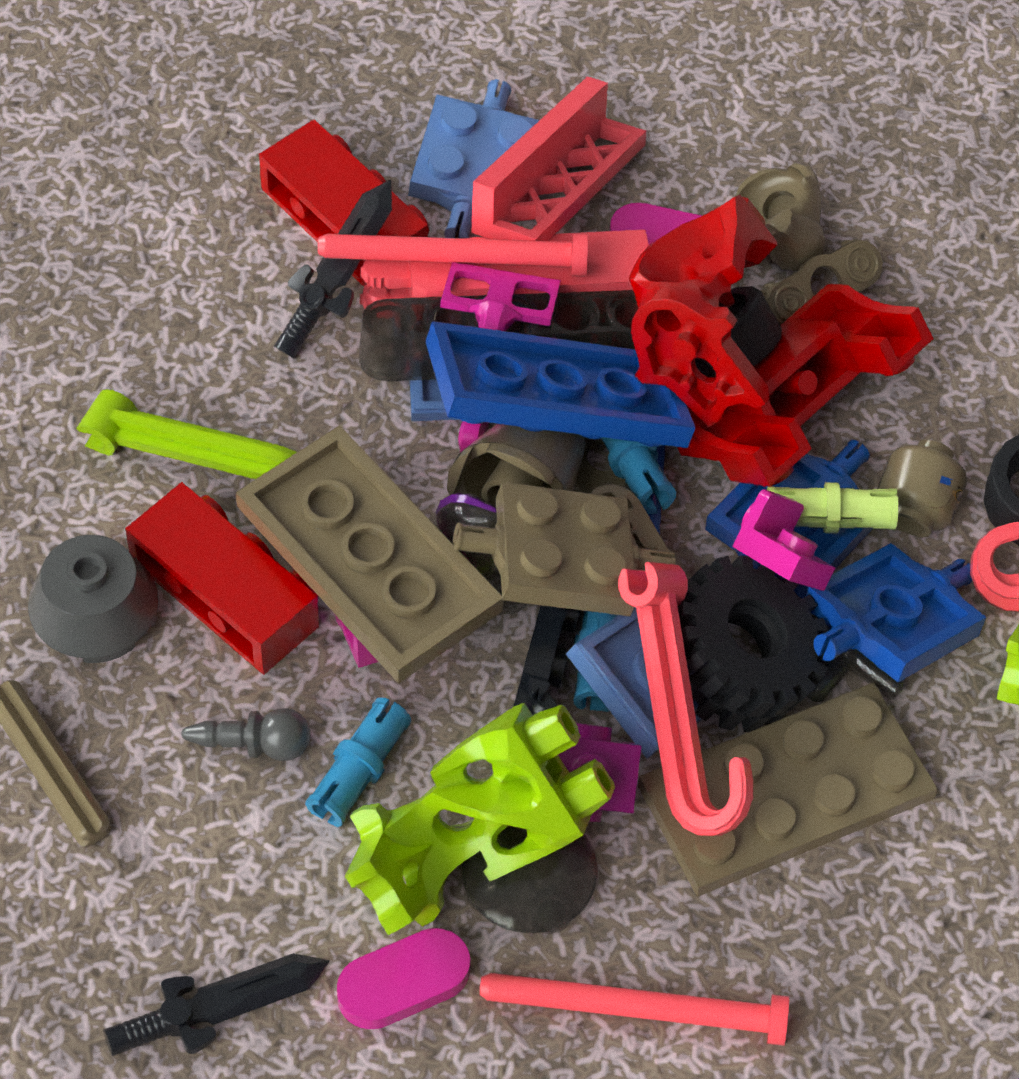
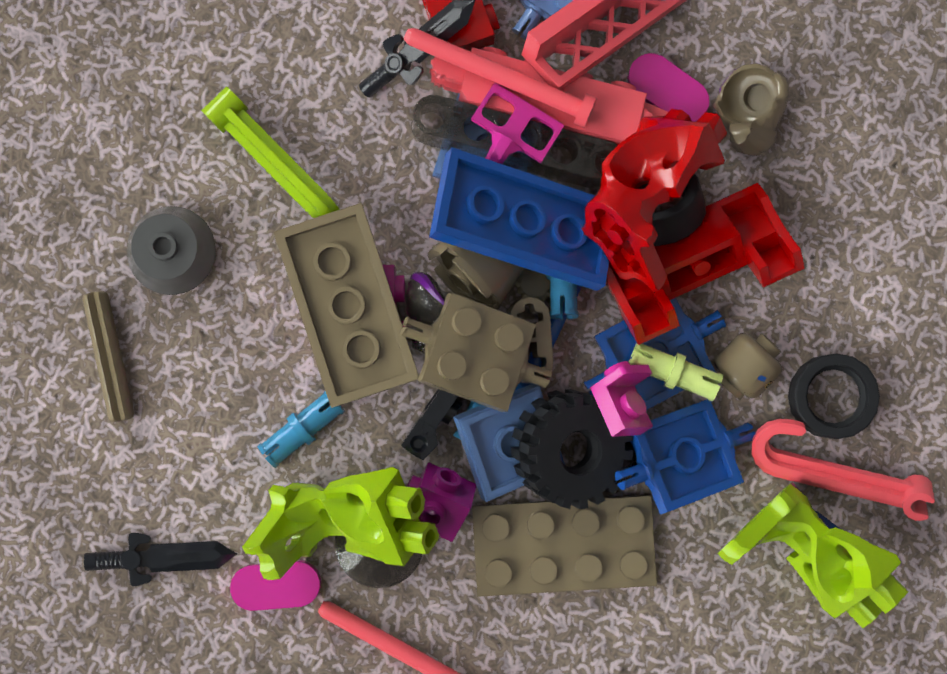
camera: 25 degrees right, 30 degrees up
(224, 577) = (254, 261): red brick -> none
(279, 734) = (257, 392): dark grey bar -> none
(656, 598) = (514, 418): coral piece -> none
(854, 265) = (785, 170): dark tan piece -> none

